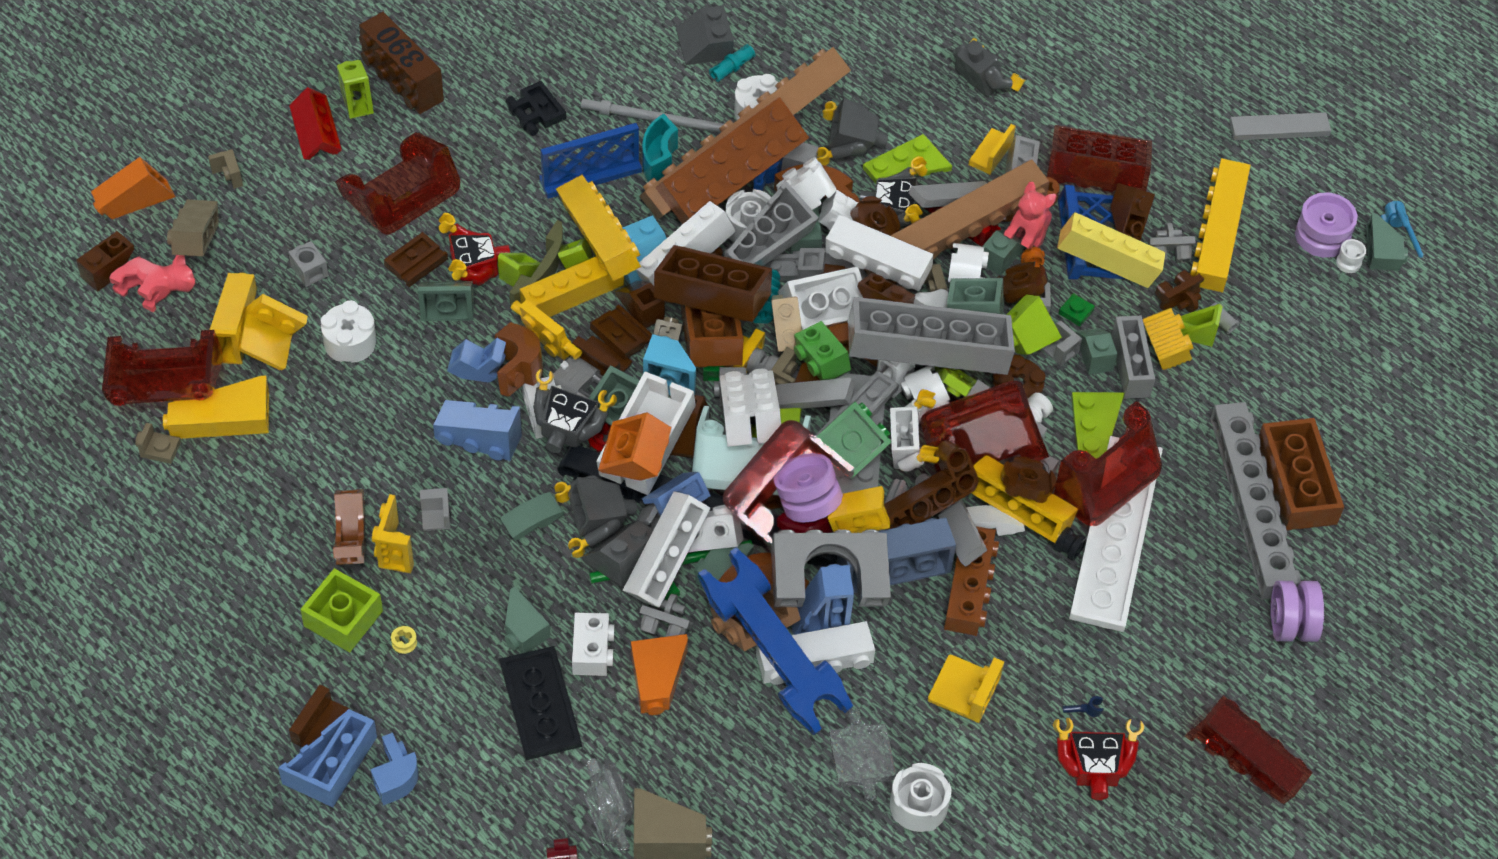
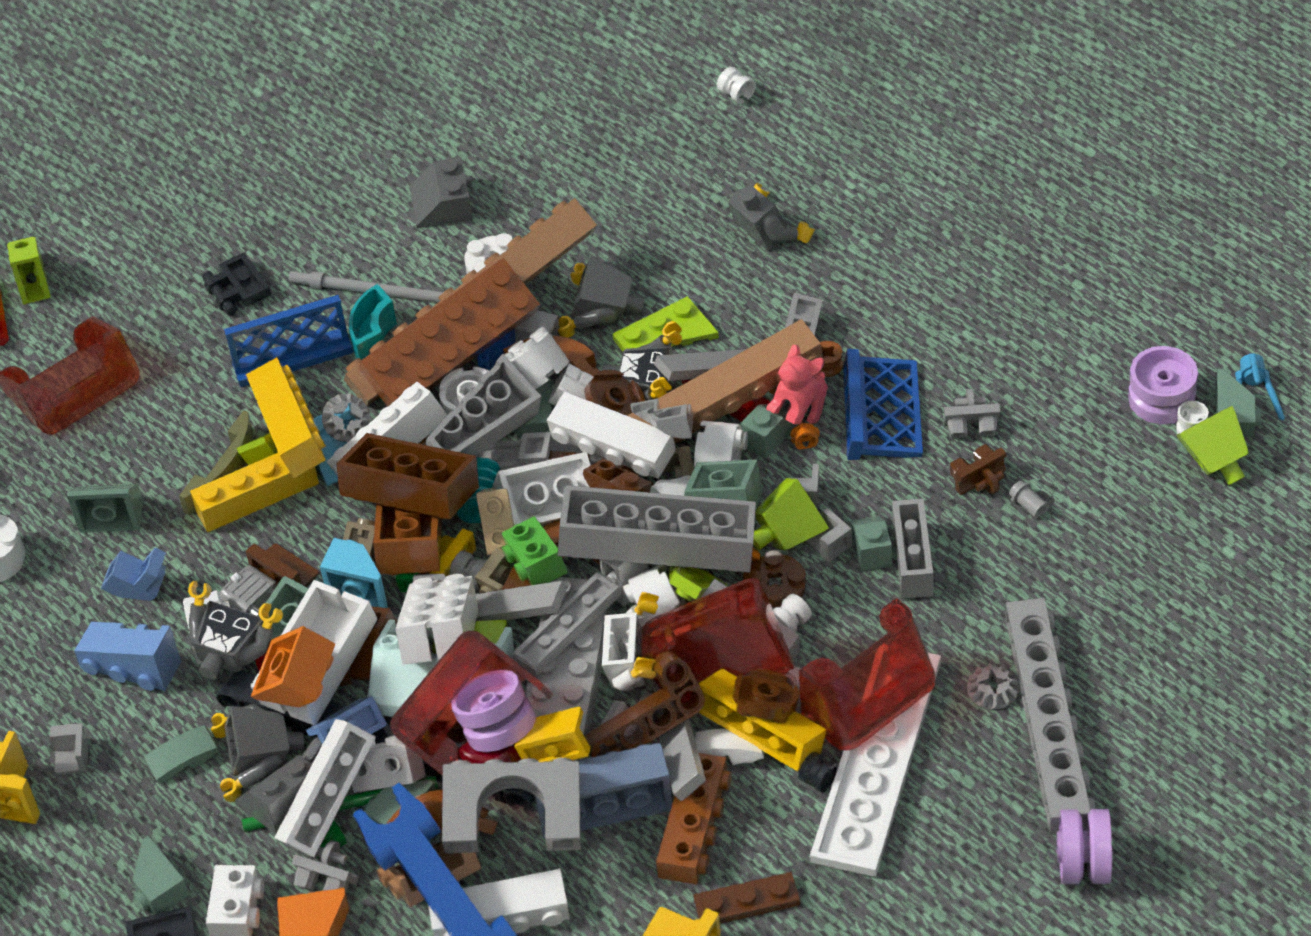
camera: 10 degrees right, 5 degrees down
(398, 645) = (9, 905): light yellow bush -> none
(401, 63) = (82, 239): reddish brown brick -> none
(415, 259) = (79, 461): reddish brown plate -> none
(471, 252) = (142, 452): torso -> none
(514, 264) = (190, 462): lime slope -> none
(524, 358) = (184, 563): dark orange arch -> none
(547, 330) = (215, 538): yellow plate -> none
(621, 332) = (305, 537): reddish brown plate -> none
(640, 302) = (332, 506): reddish brown slope -> none
(641, 236) = (337, 405): none -> light grey gear
(732, 62) = (469, 223): teal pin -> none
(826, 600) = (509, 844): medium blue wedge -> none
(855, 436) = (557, 652): green plate -> none
(933, 242) = (673, 421): none -> light grey slope
(992, 149) = (768, 311): yellow panel -> none
(1021, 648) = (749, 898): none -> reddish brown plate
(1023, 280) = (787, 461): reddish brown plate -> none
(1076, 309) = (853, 495): green plate -> none
(1095, 419) = (860, 622): lime wing -> none
(1099, 159) = (895, 319): clear red slope -> none
(1111, 250) = (895, 423): light yellow brick -> none
(1131, 210) = (926, 377): reddish brown slope -> none
(1167, 339) = (957, 525): yellow brick -> none
(1199, 481) = (981, 692): none -> light grey gear
(1202, 324) = (999, 509): lime slope -> none
(1221, 225) = (1035, 389): yellow brick -> none
(1280, 126) = (1120, 271): light grey tile -> none
(1300, 474) = (1105, 682): dark orange brick -> none
(1375, 276) = (1217, 444): none -> lime torso

